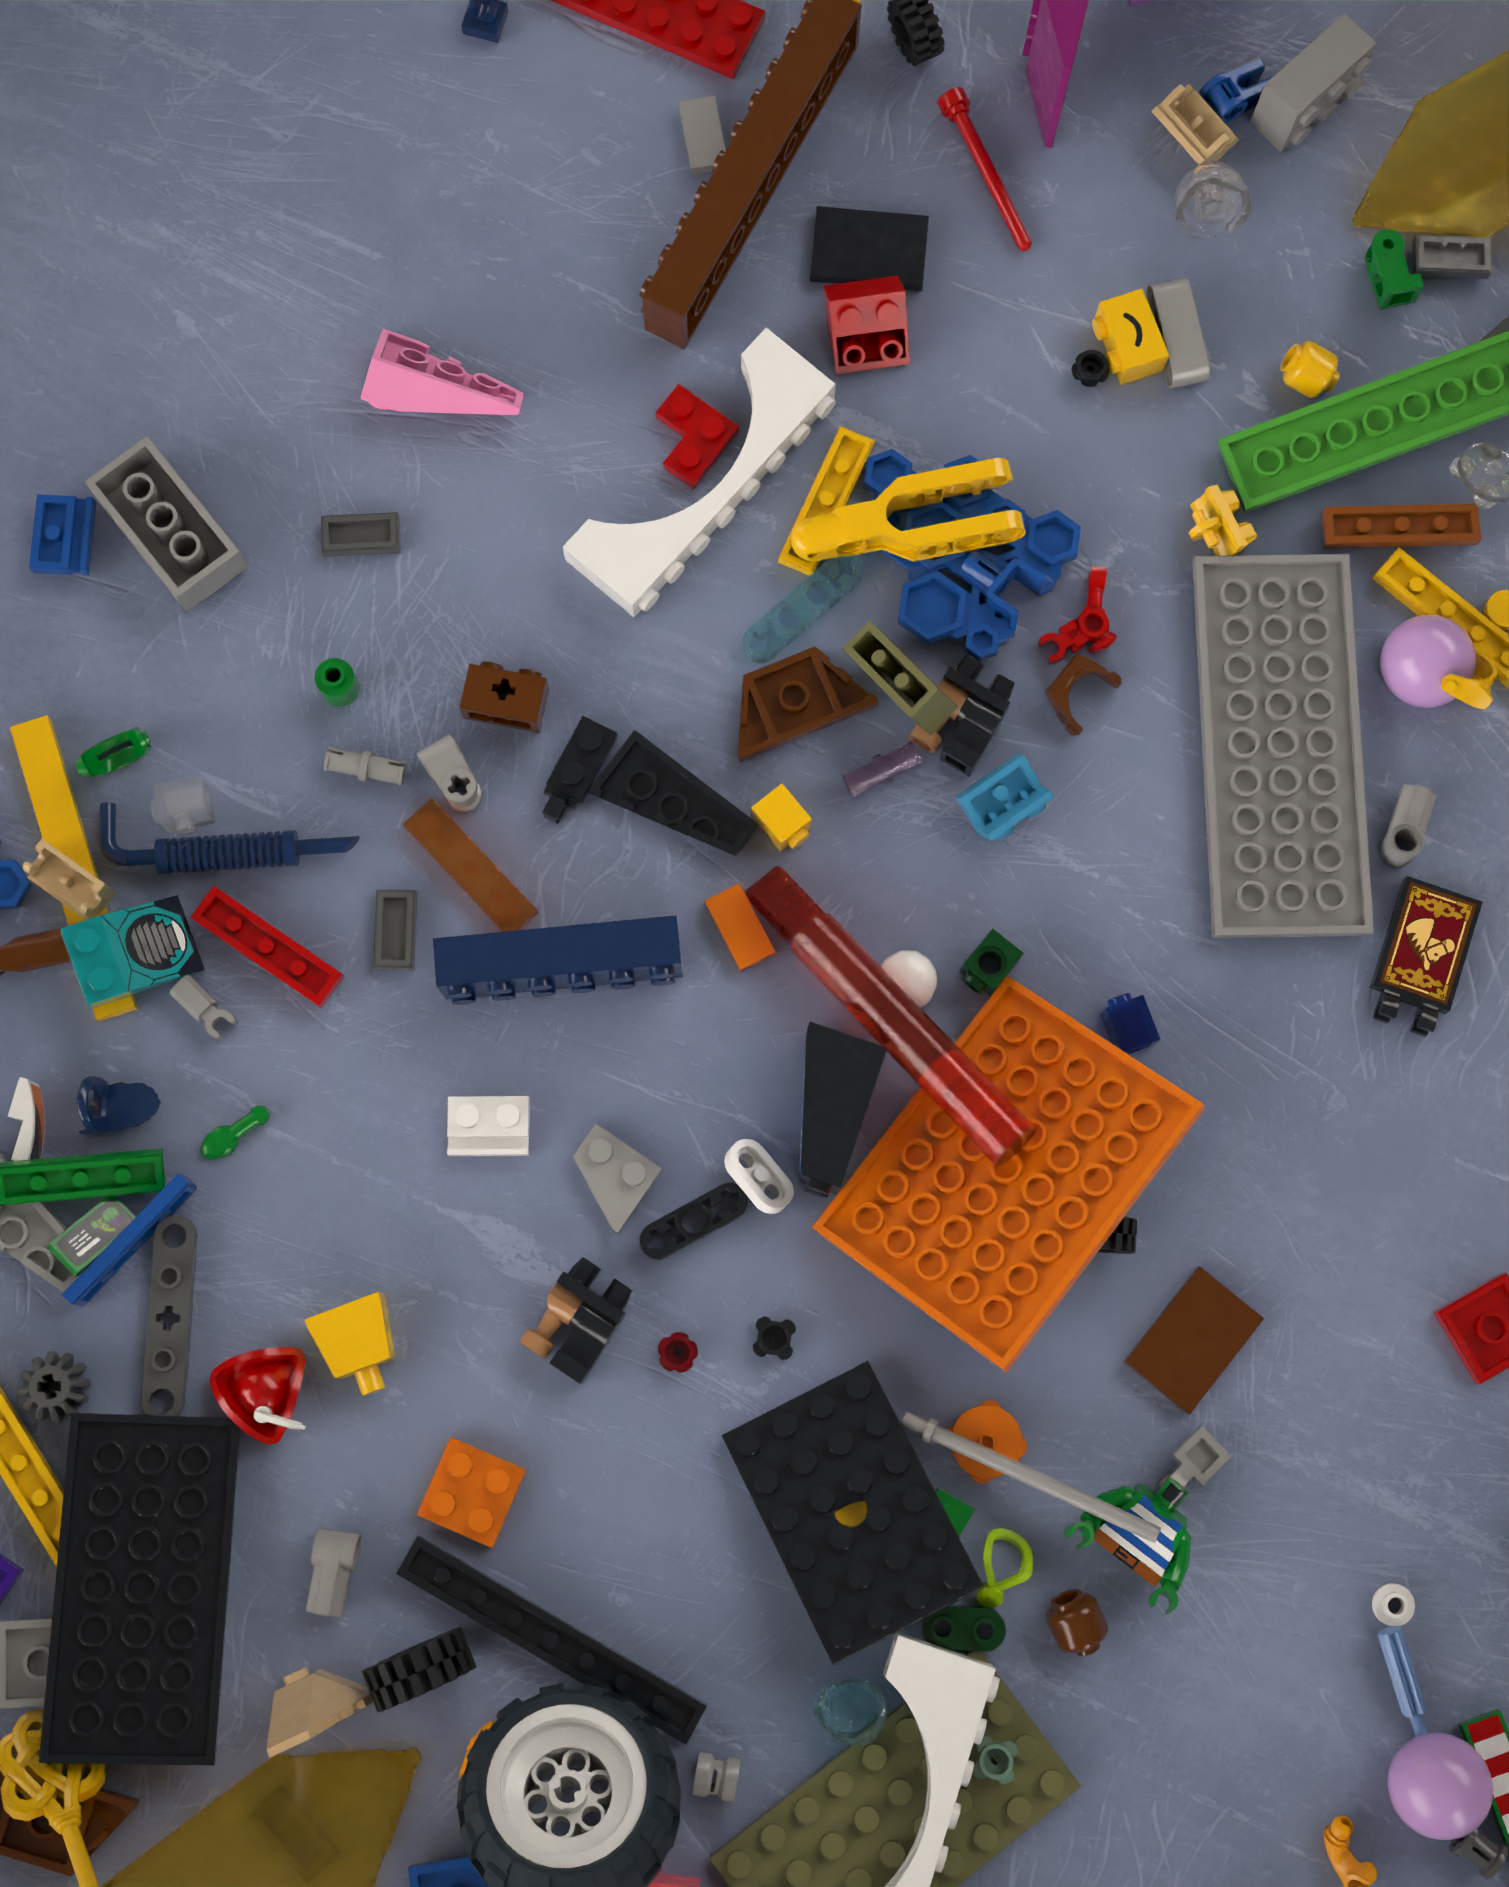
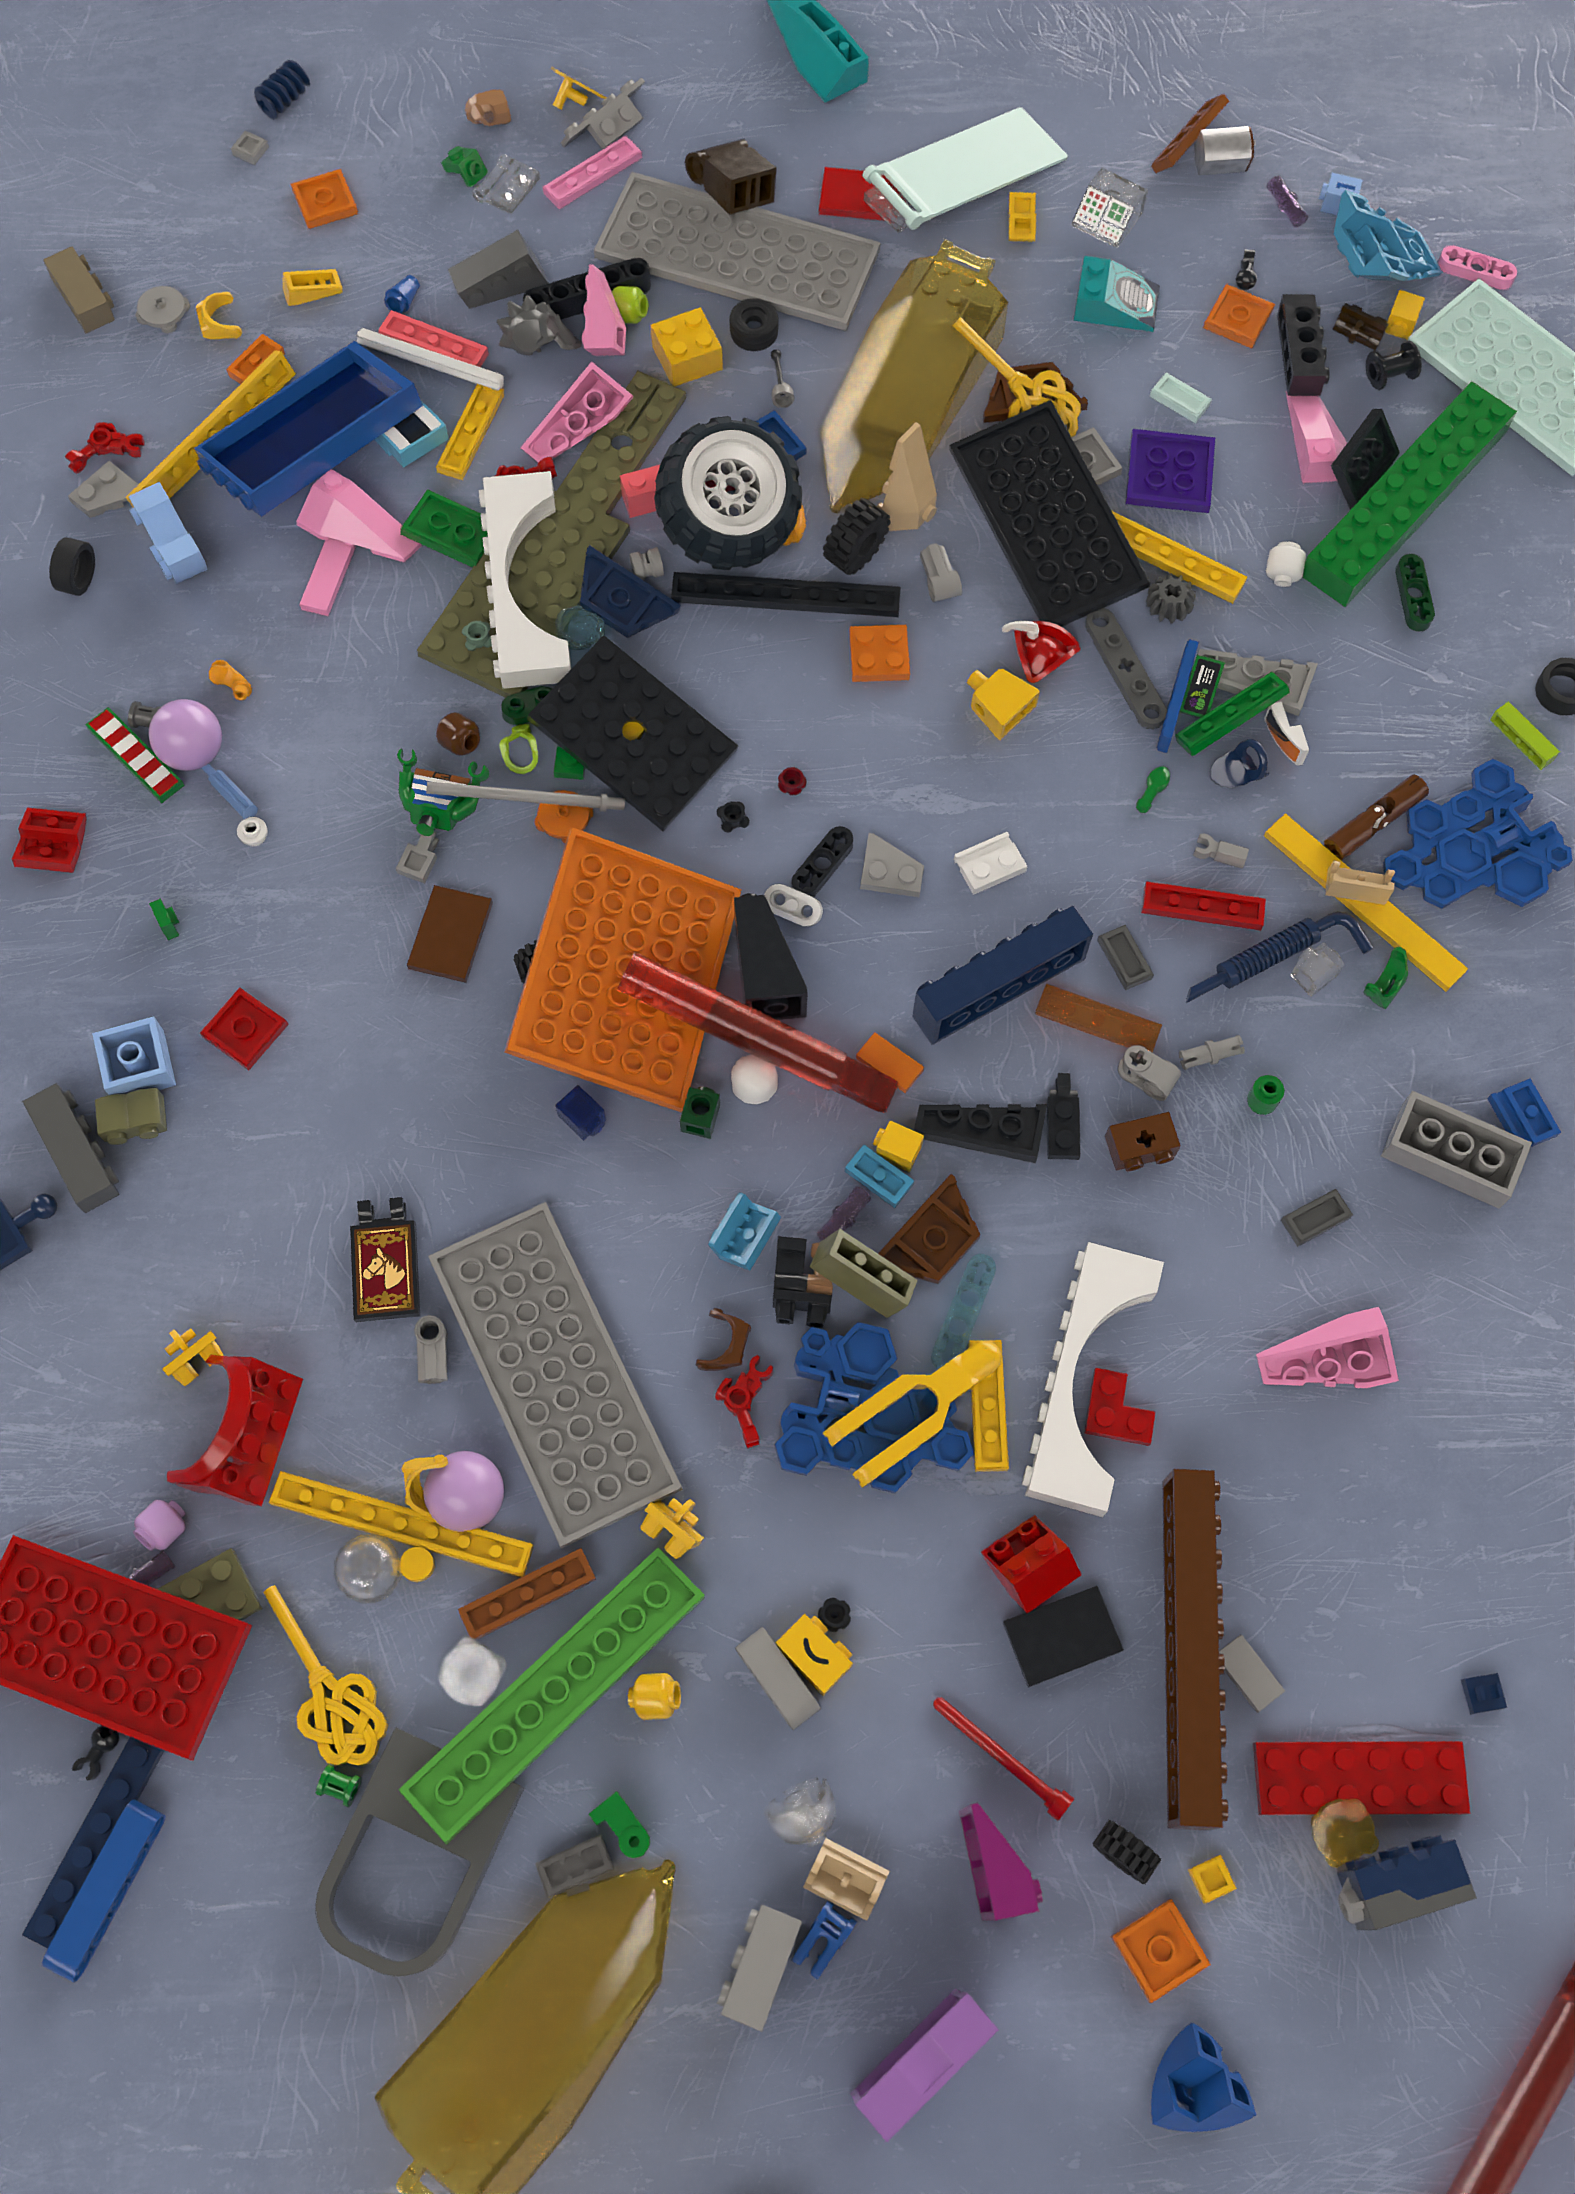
camera: 155 degrees right, 10 degrees down
(131, 950) = (1290, 855): slope -> none
(586, 1312) = (862, 778): black hips -> none
(774, 1739) = (622, 597): none -> dark blue wing
(820, 796) = (879, 1176): none -> dark azure plate

